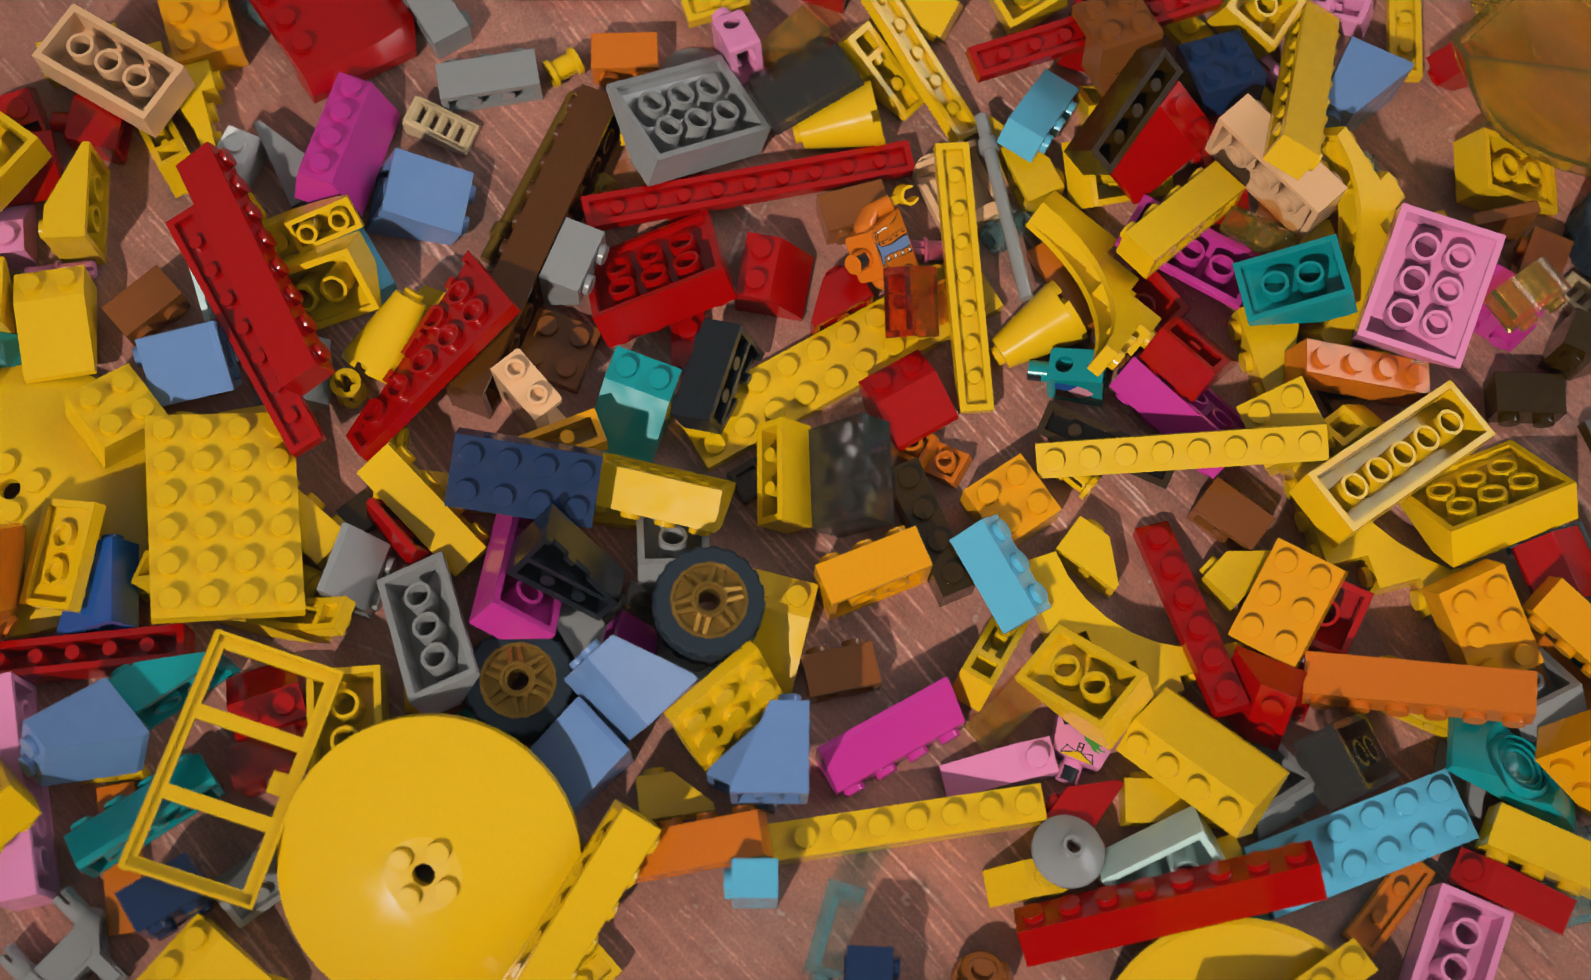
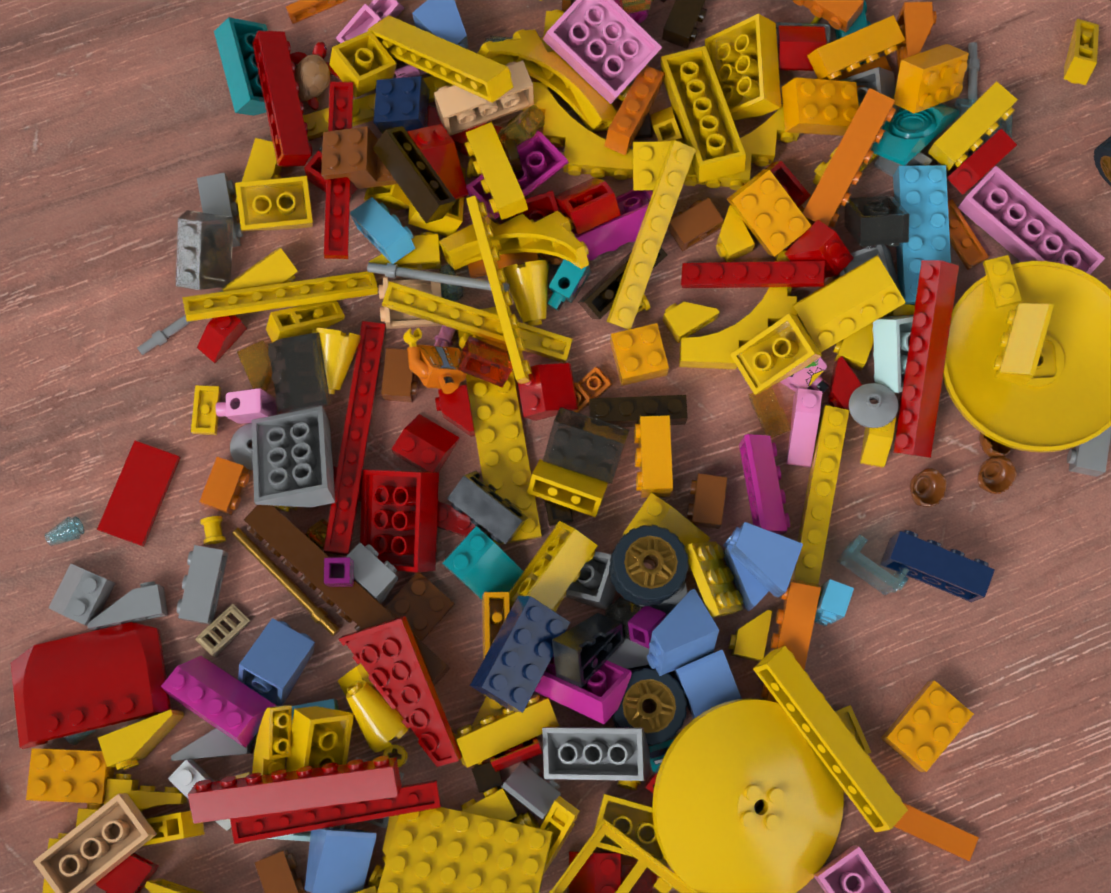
camera: 65 degrees left, 5 degrees up
(265, 75) = (135, 742): none -> yellow slope
(526, 391) = (454, 633): light nougat panel -> none
(551, 213) = (339, 572): none -> magenta brick
(986, 664) = (731, 404): yellow slope -> none
(1001, 573) = (686, 376): medium azure brick -> none
(1007, 283) = (501, 298): none -> yellow plate
(1213, 233) = (514, 155): none -> dark brown tile
(1296, 284) = (568, 119): teal slope -> none

